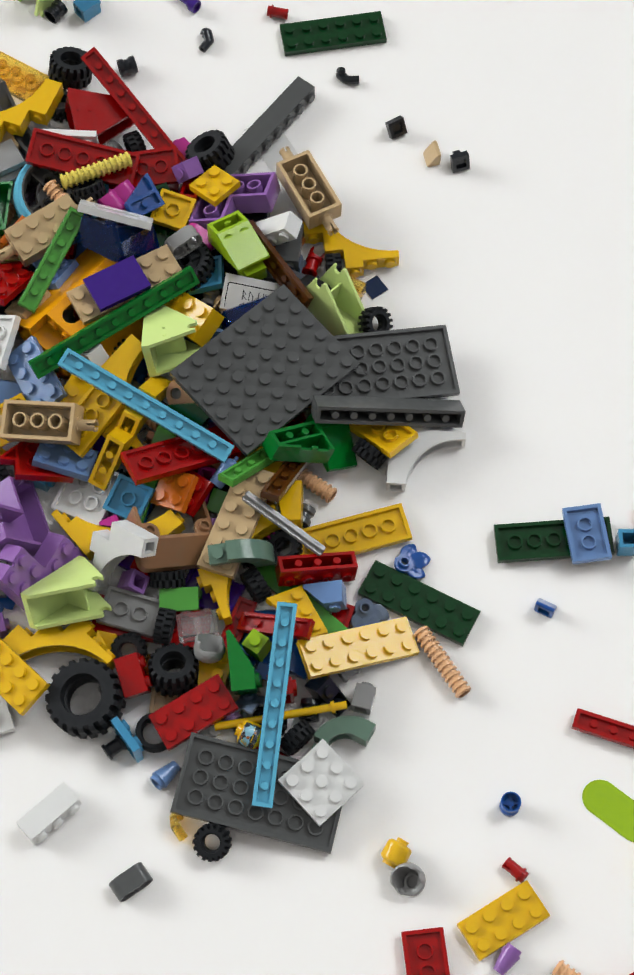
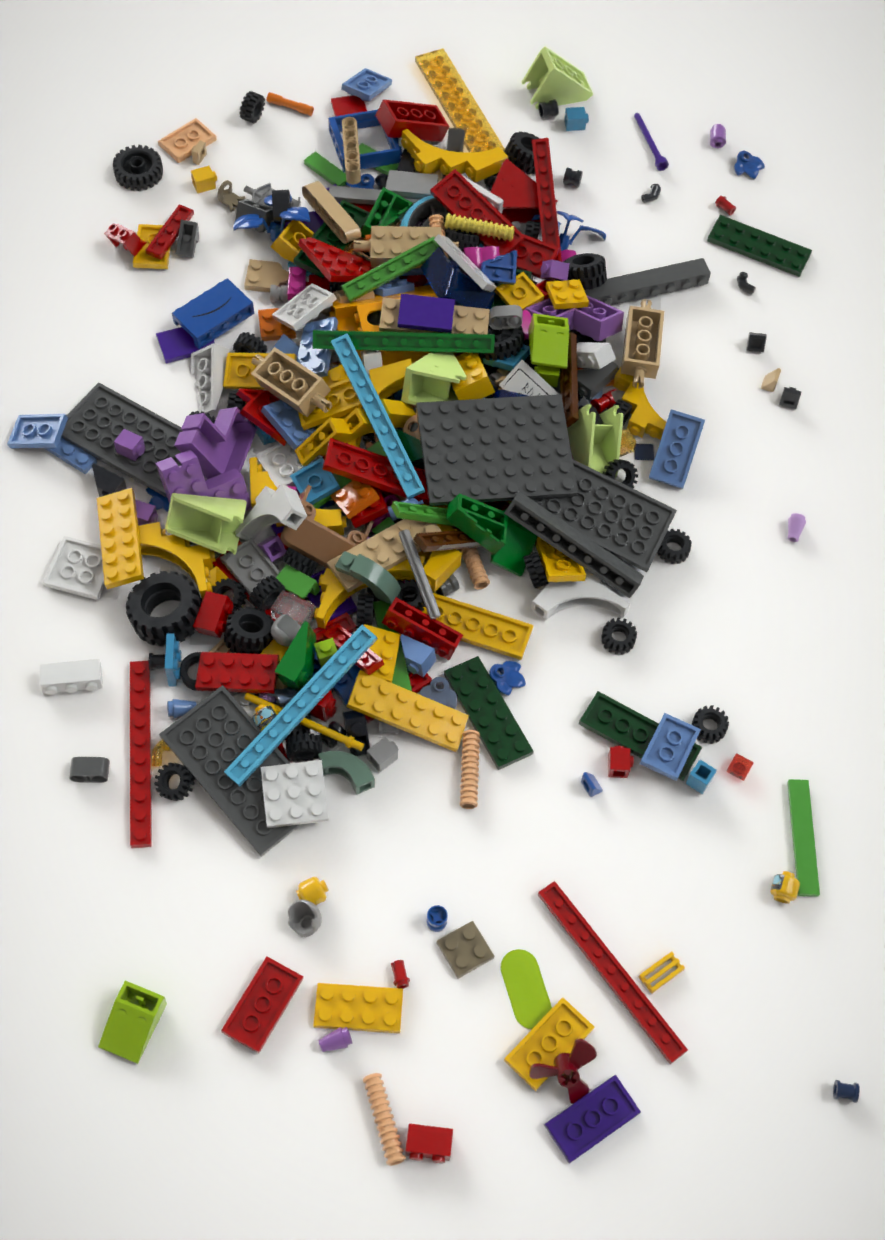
camera: 30 degrees right, 5 degrees down
(161, 838) = (140, 755): none -> red plate
(169, 112) = (564, 239): none -> blue plant
(404, 268) = (676, 449): none -> medium blue plate
(470, 350) = (675, 555): none -> black tyre
(475, 475) = (620, 626): none -> black tyre
(545, 275) = (795, 526): none -> lavender cone
(549, 813) = (465, 949): none -> dark tan plate
(554, 573) = (619, 762): none -> red brick
(602, 482) = (715, 715): none -> black tyre

